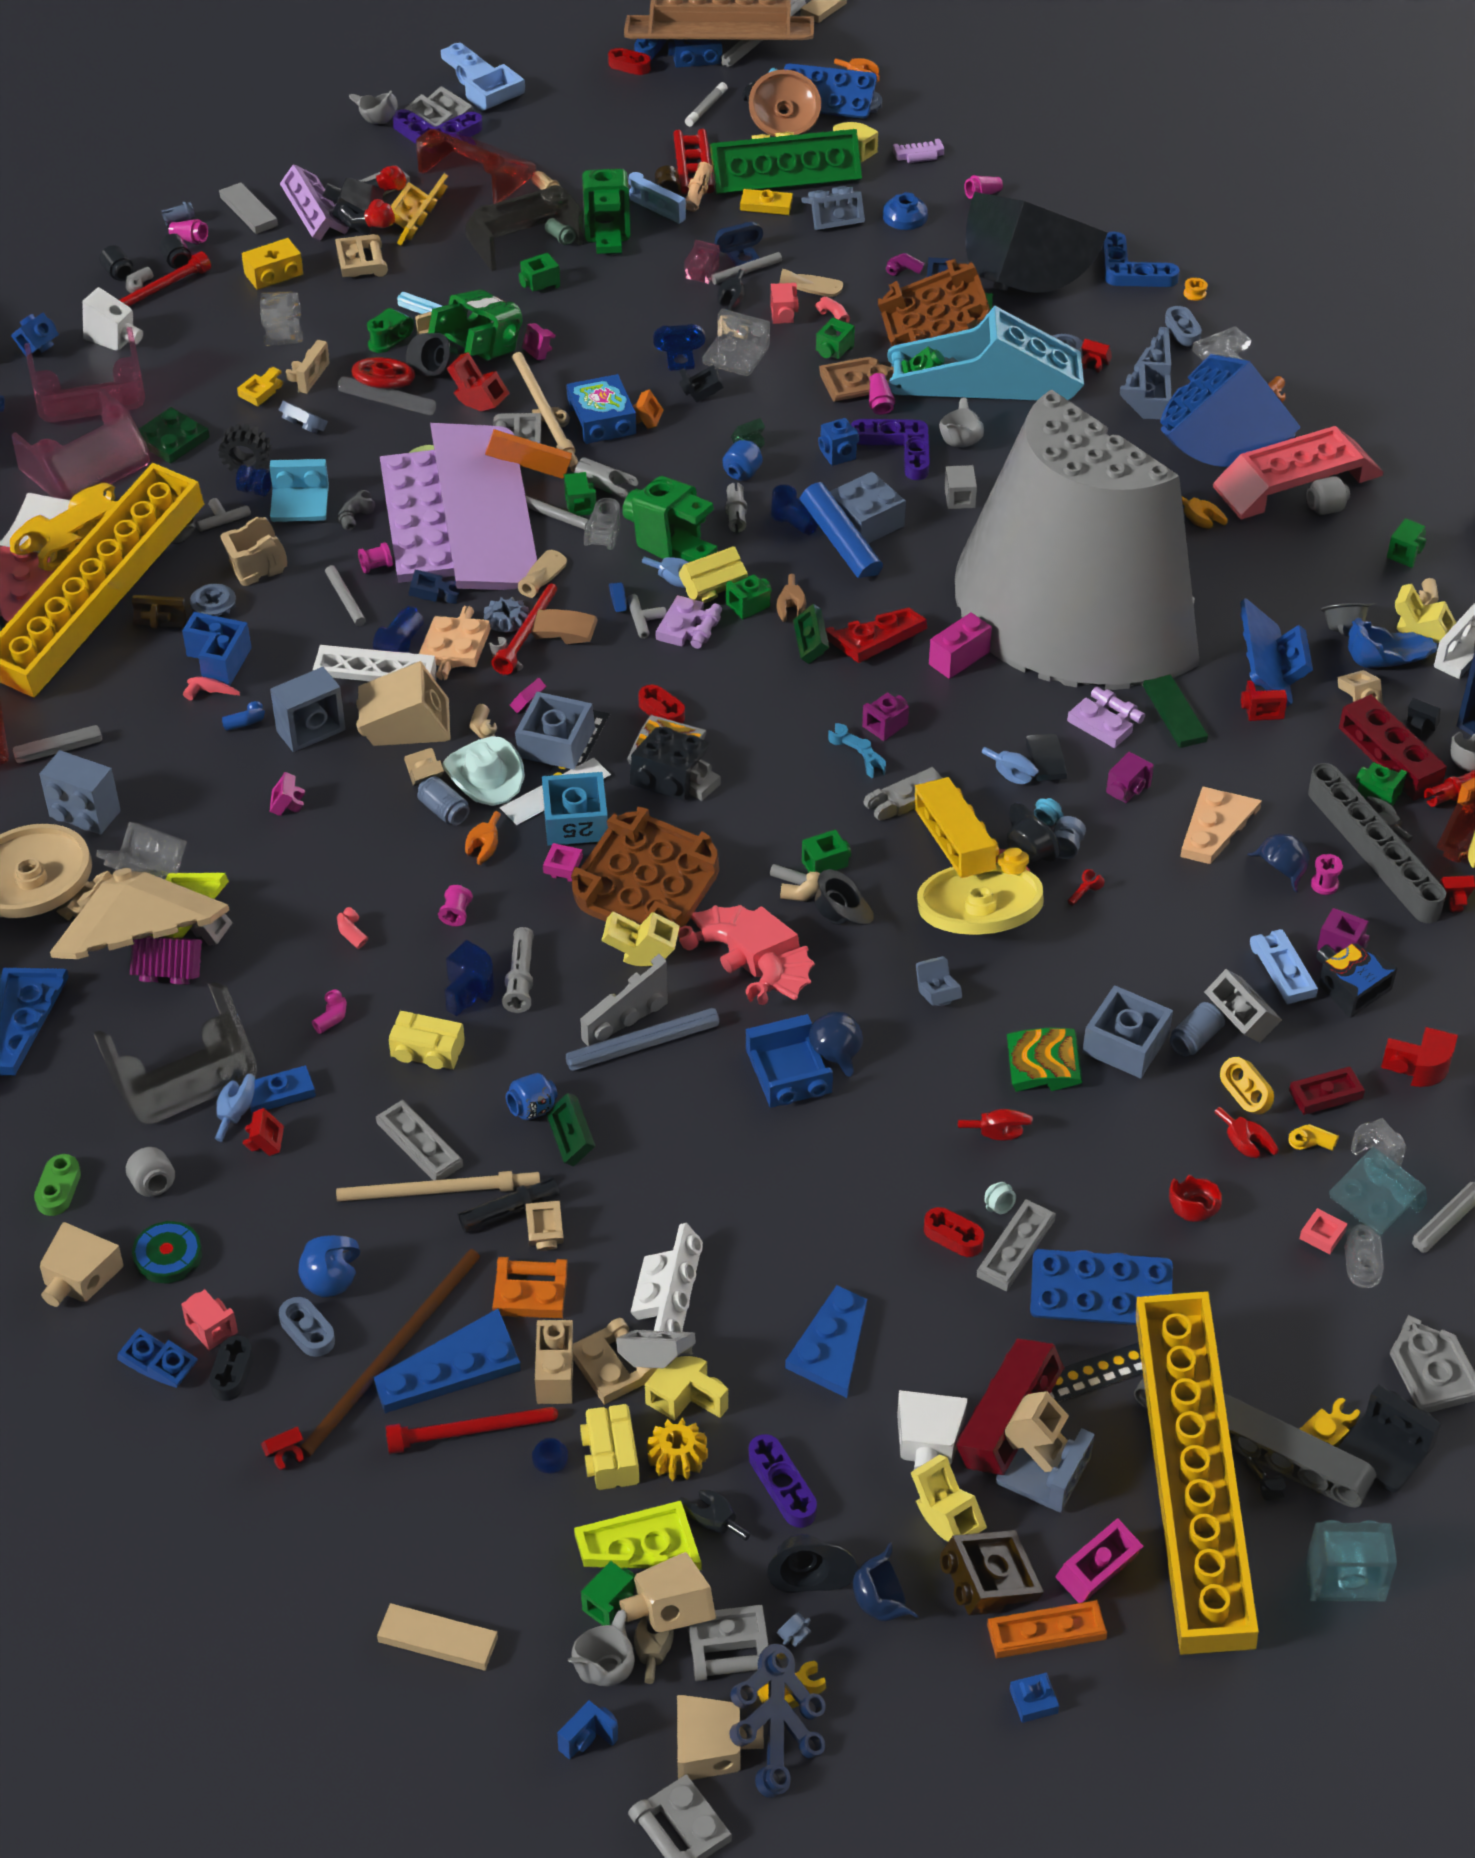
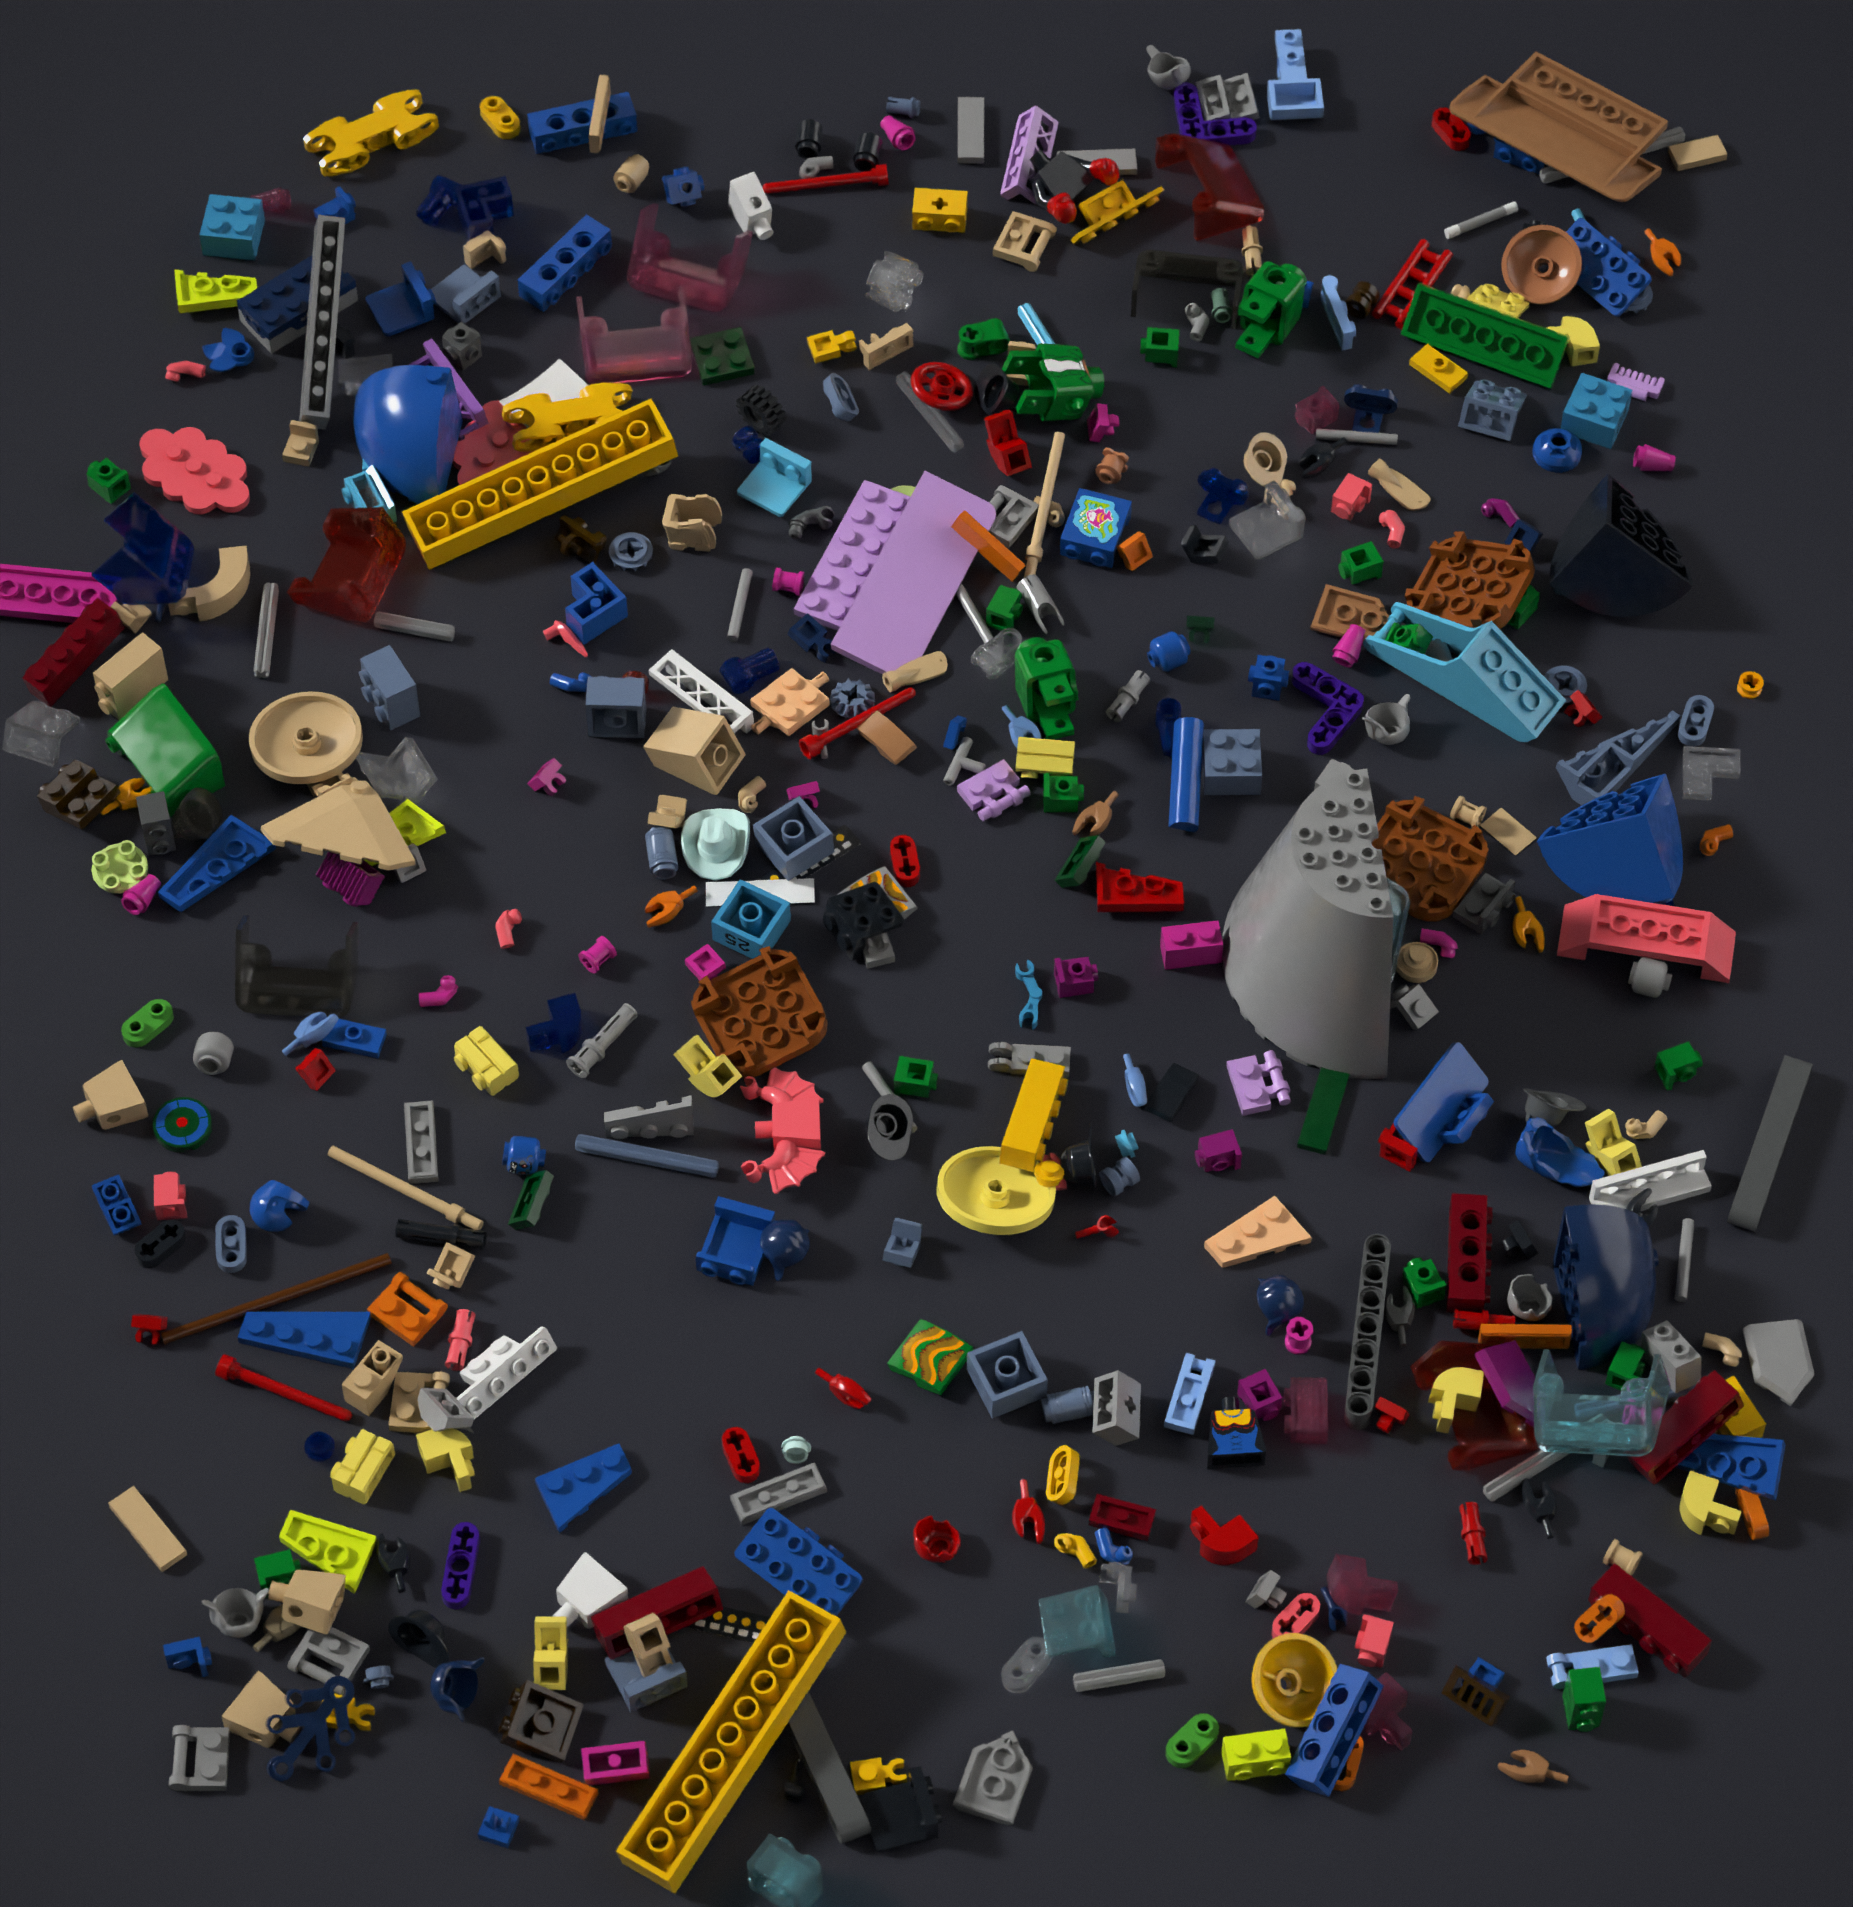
camera: 35 degrees right, 10 degrees up
(221, 516) = (702, 466): light grey piece -> none
(551, 246) = (1198, 319): none -> light grey arm
(574, 365) = (1112, 465): none -> nougat brick
(606, 1284) = (460, 1340): none -> coral pin
(677, 1449) = (402, 1487): yellow gear -> none
(694, 306) = (1265, 459): none -> tan piece
(698, 186) = (1383, 320): light nougat pin -> none
(801, 892) = (866, 1096): tan arm -> none
(913, 171) = (1596, 410): none -> dark azure brick
(1124, 273) = (1704, 622): blue beam -> none
(1323, 1231) = (1011, 1626): coral plate -> none
(1341, 1124) = (1110, 1551): none -> blue arm
(1361, 685) = (1496, 1184): tan bracket -> none
(1392, 924) = (1307, 1410): none -> clear pink brick

